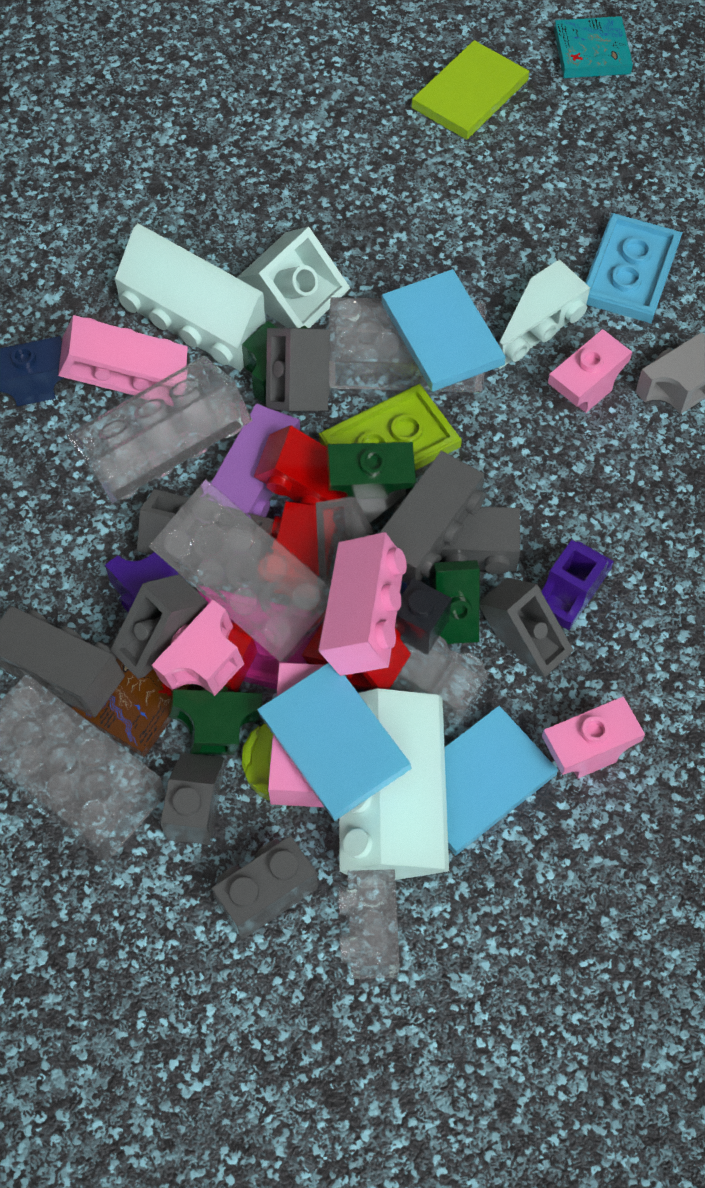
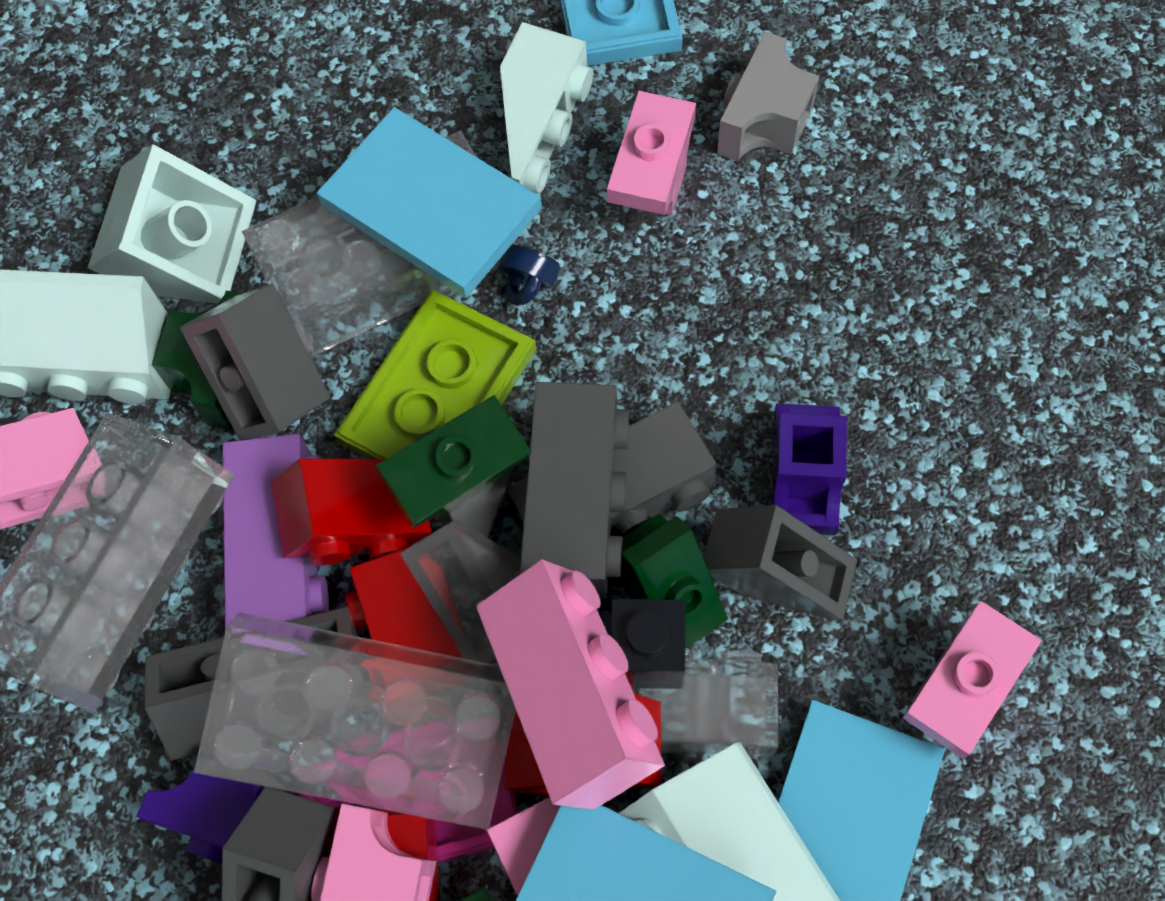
camera: 25 degrees left, 5 degrees up
(480, 400) = (530, 266): none -> dark blue tile

